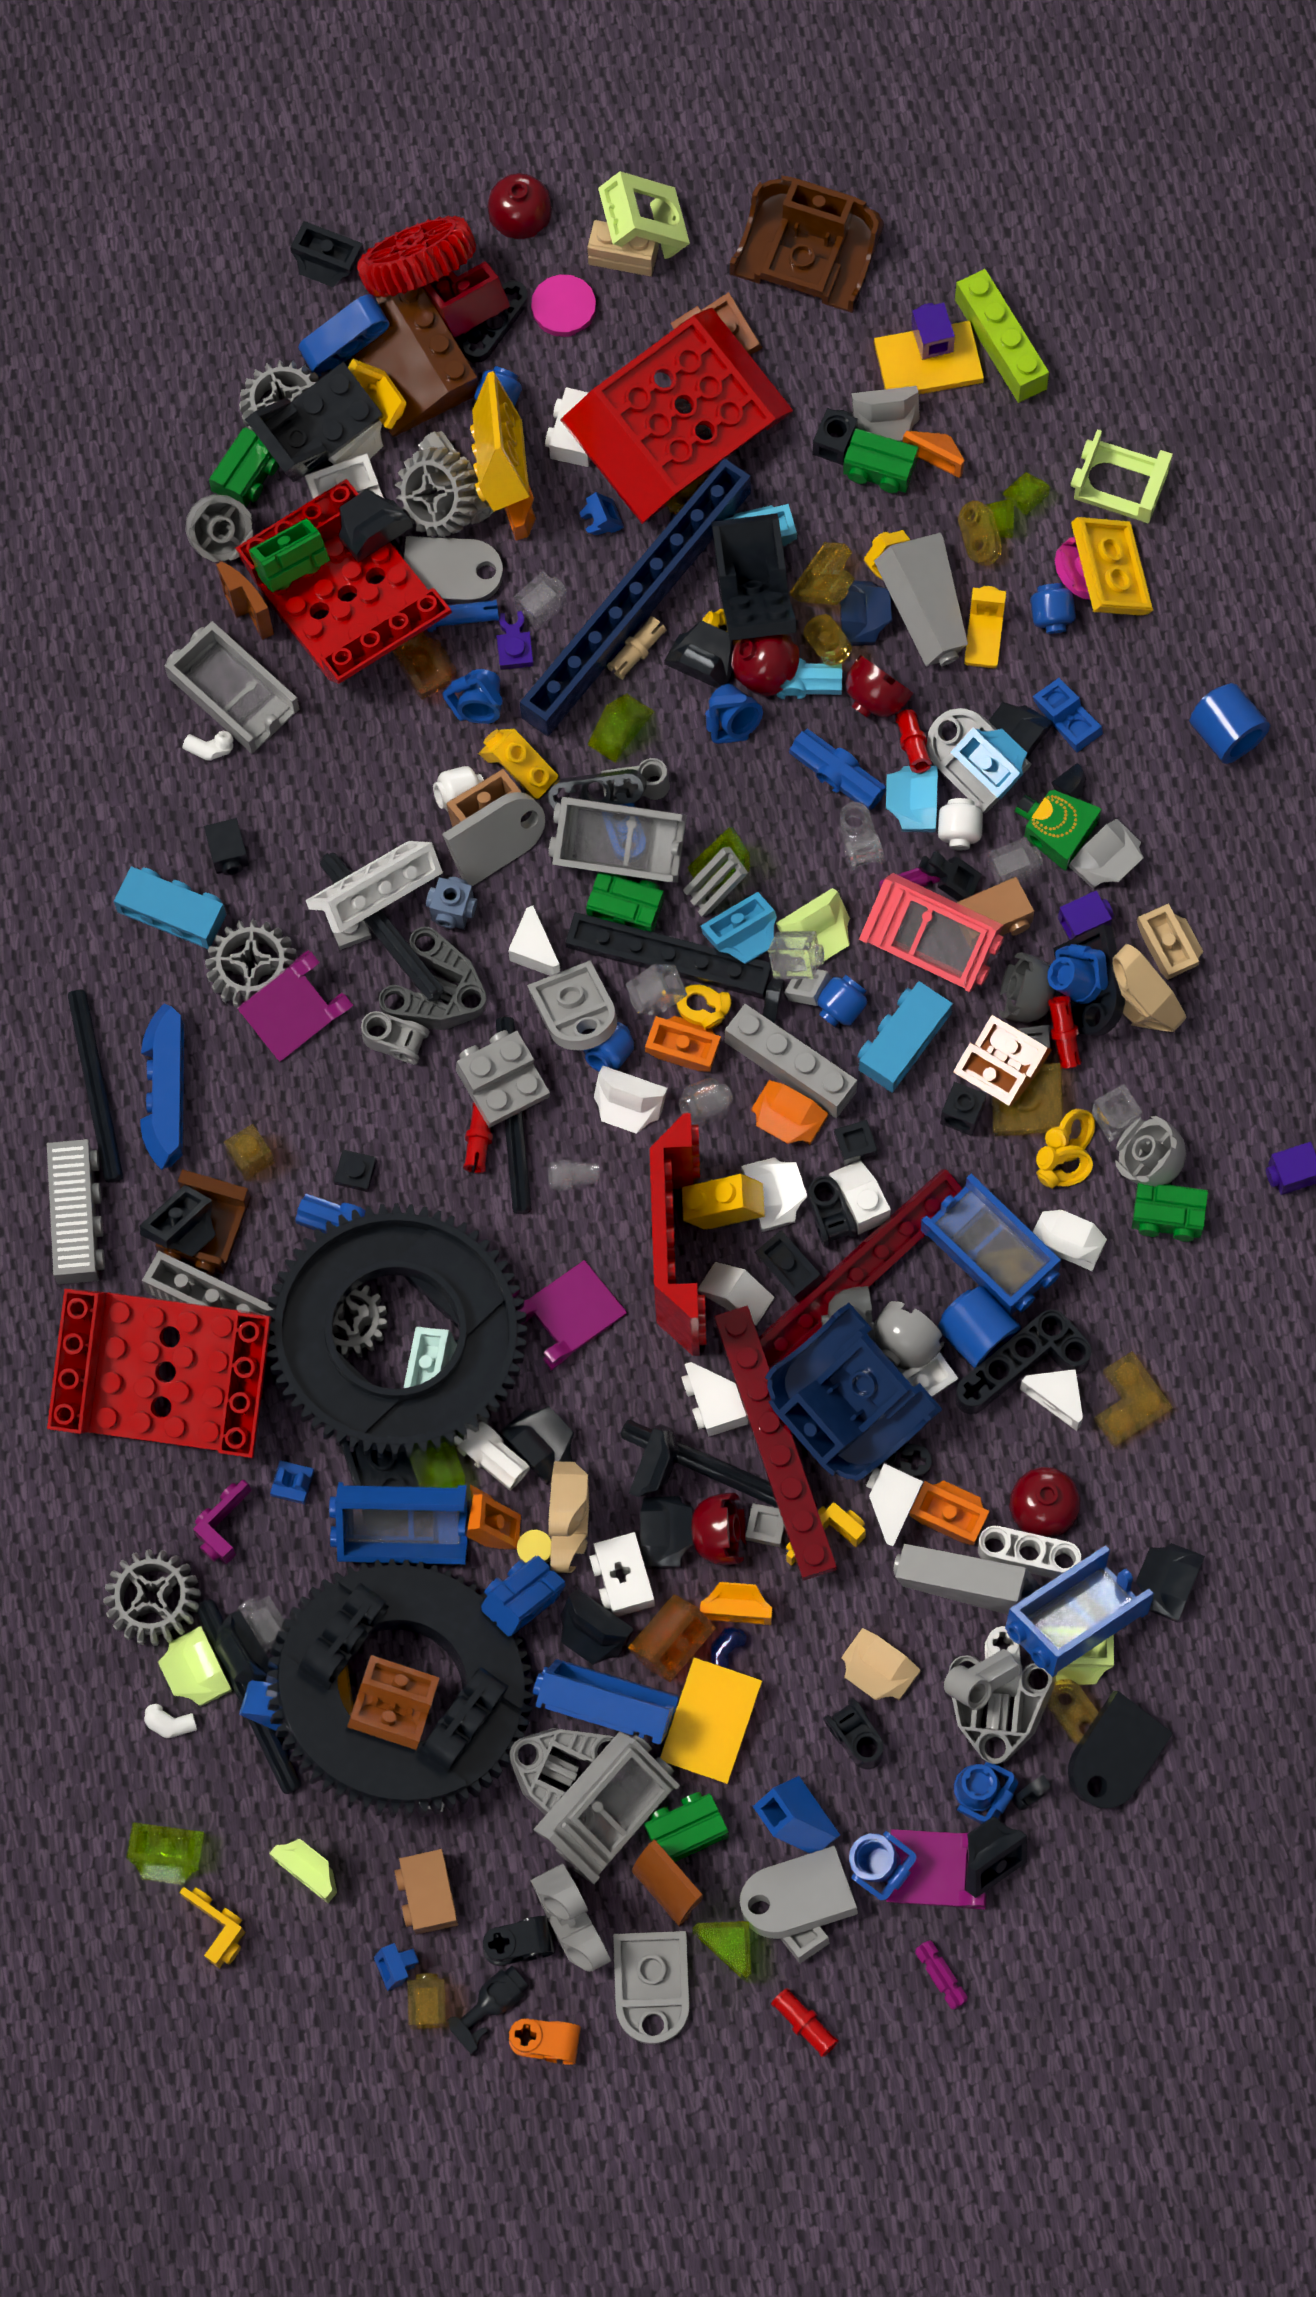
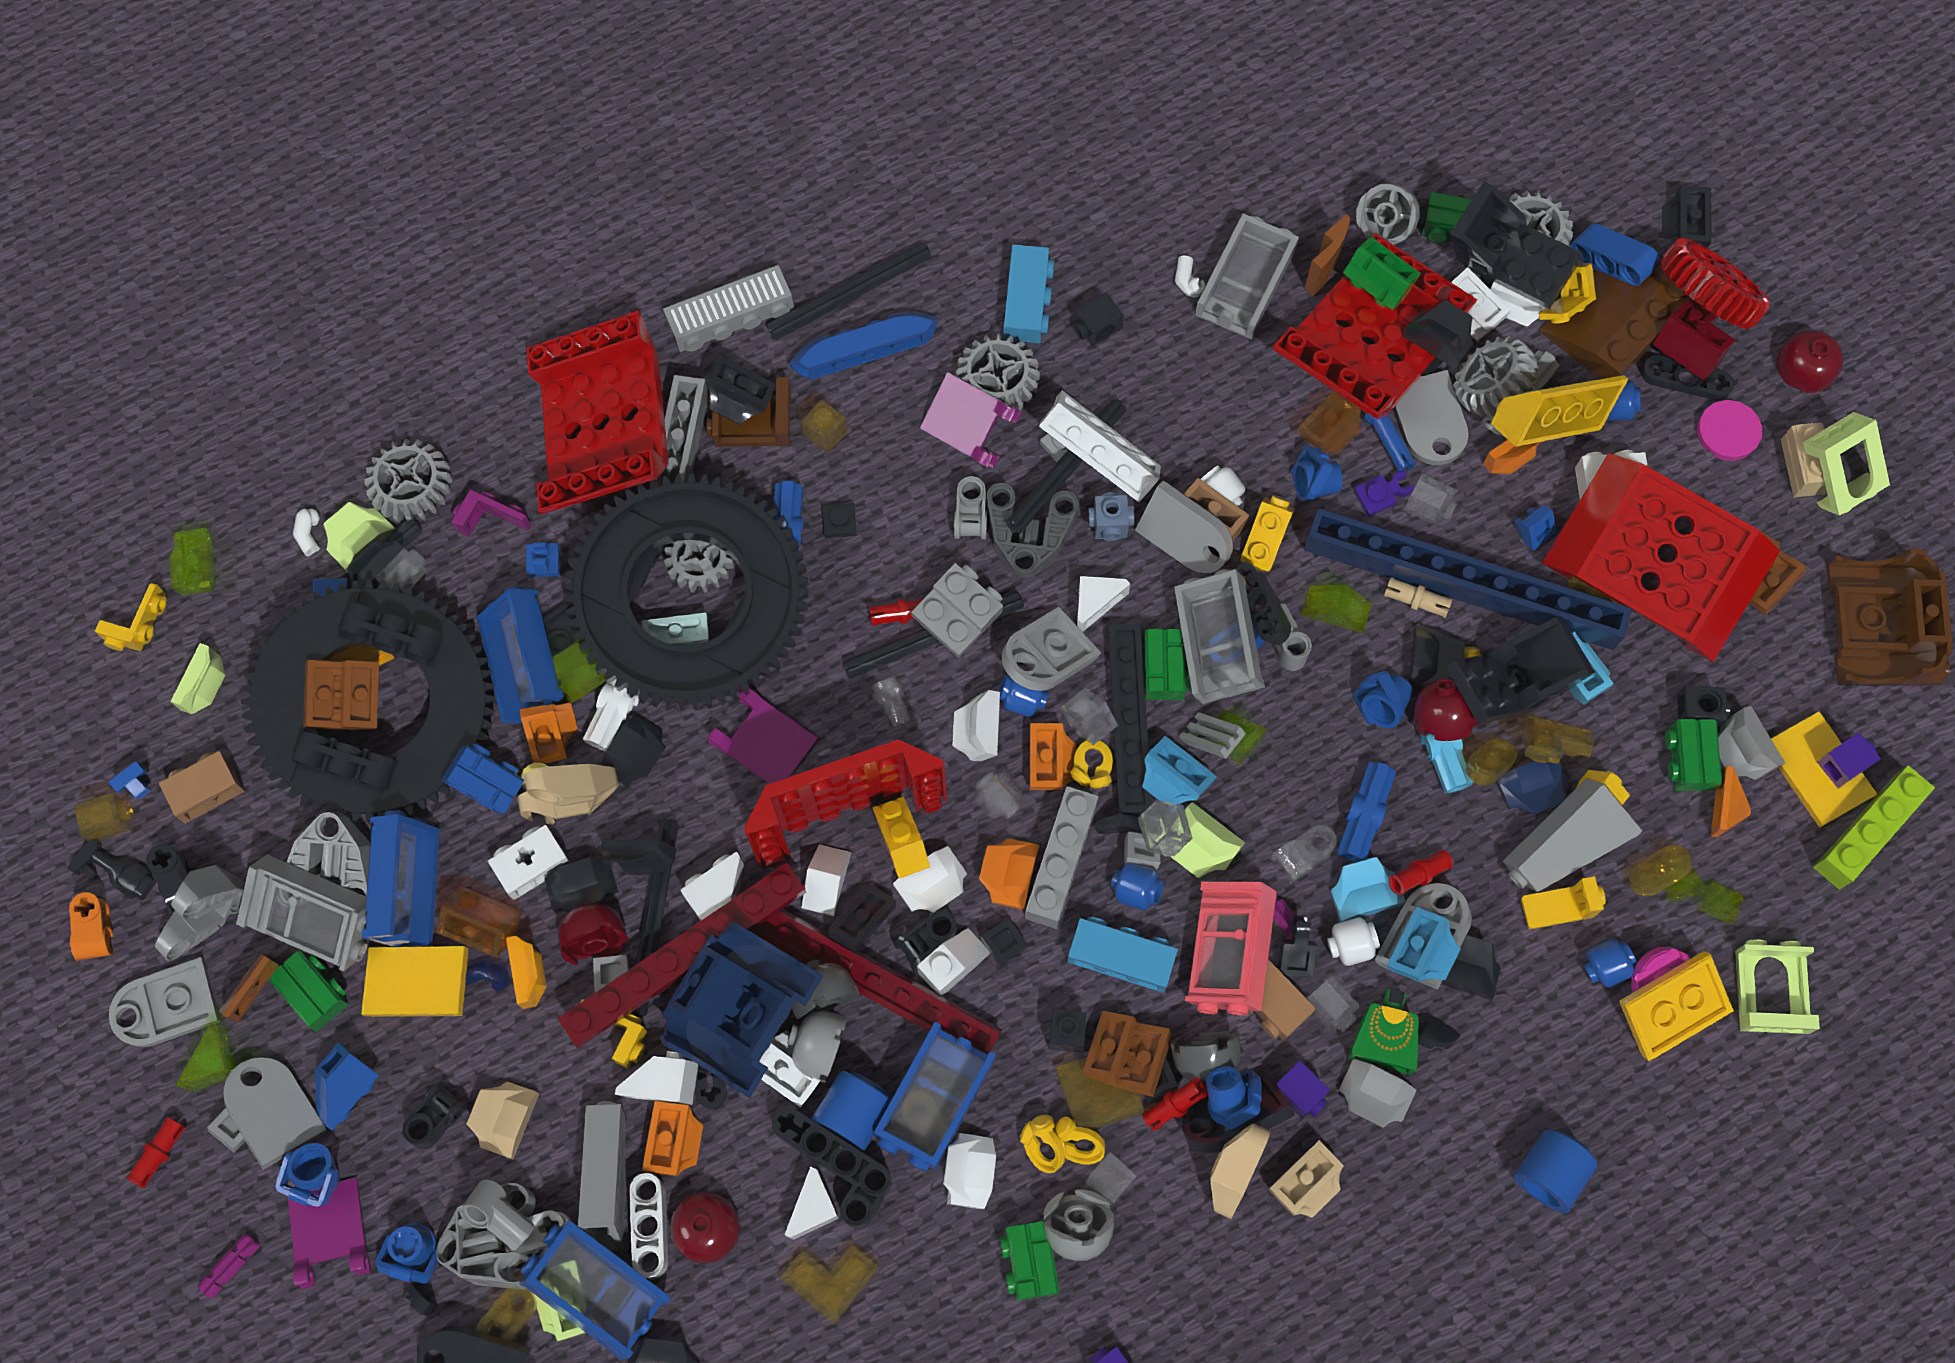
camera: 70 degrees right, 0 degrees up
(592, 1629) = (473, 851): black slope -> none
(875, 690) = (1459, 821): dark red cylinder -> none
(993, 1855) = (342, 1278): black slope -> none
(1067, 714) = (1506, 1011): blue slope -> none

